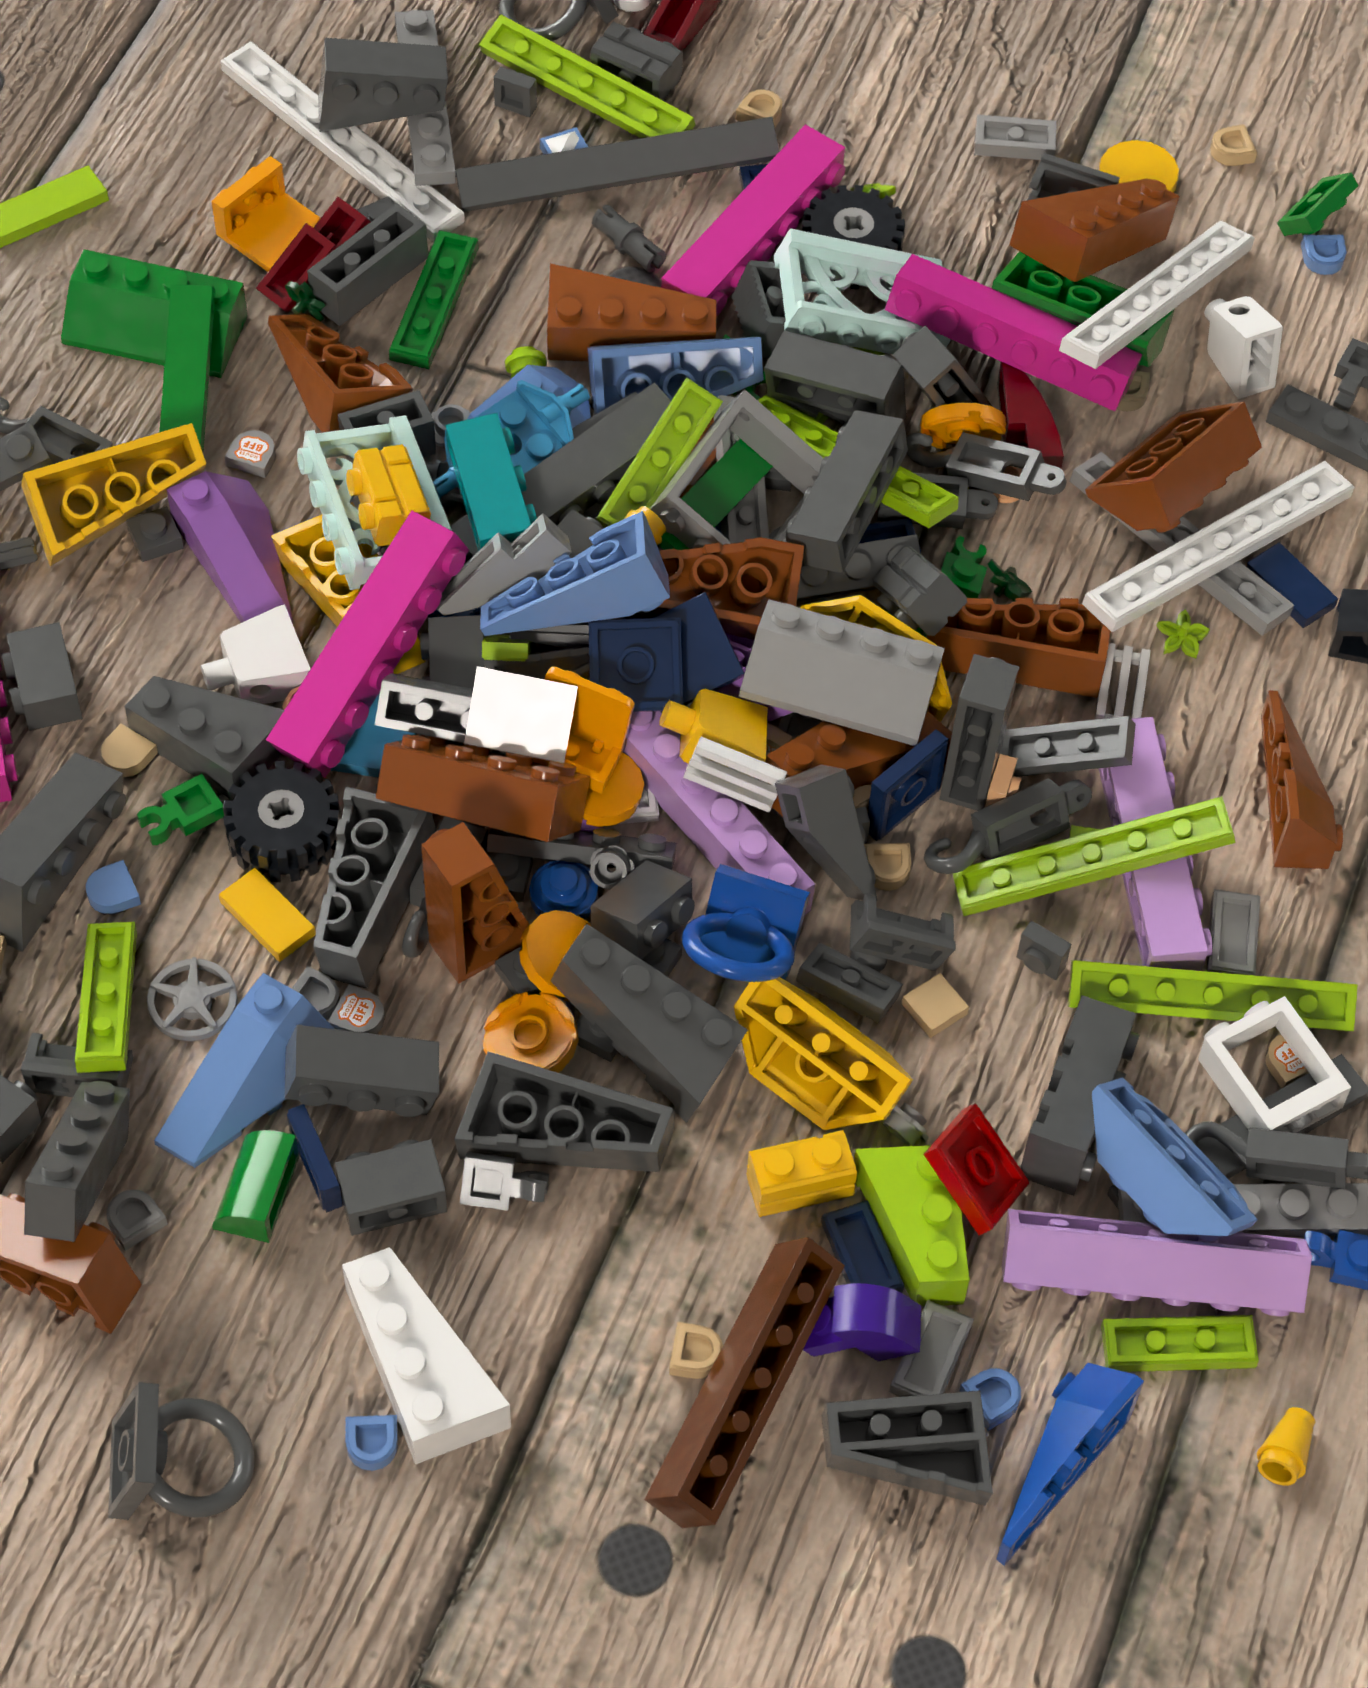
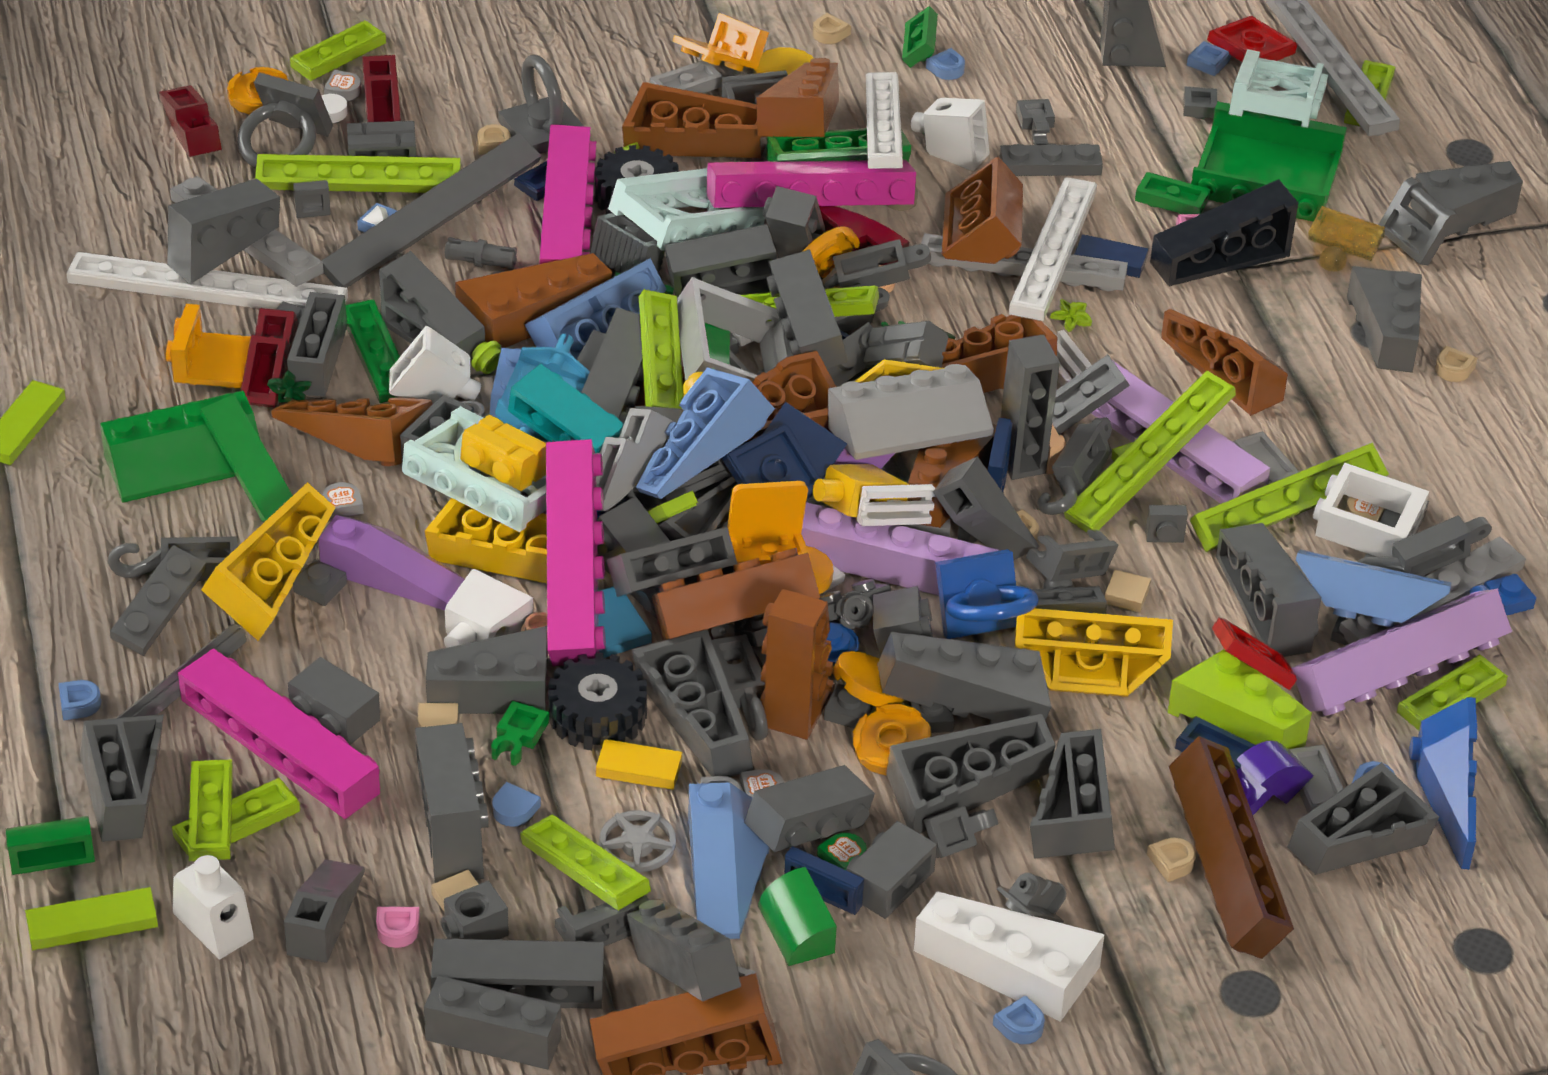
camera: 35 degrees left, 15 degrees down
(371, 1132) = (841, 849): none -> tile
(445, 357) = (433, 369): none -> white torso
(487, 1317) = (1035, 896): none -> dark grey hinge
(503, 284) = (417, 299): none -> dark grey wedge
(520, 714) = (732, 531): white sticker -> none
(643, 1224) = (1076, 801): none -> dark grey wedge
(801, 1173) = (1144, 720): yellow brick -> none
(827, 106) = (537, 114): none -> dark grey tile
(906, 1124) = (1181, 660): light grey plate -> none
(956, 188) = (692, 124): none -> dark orange wedge
(1090, 124) = (731, 42): none -> light orange bracket

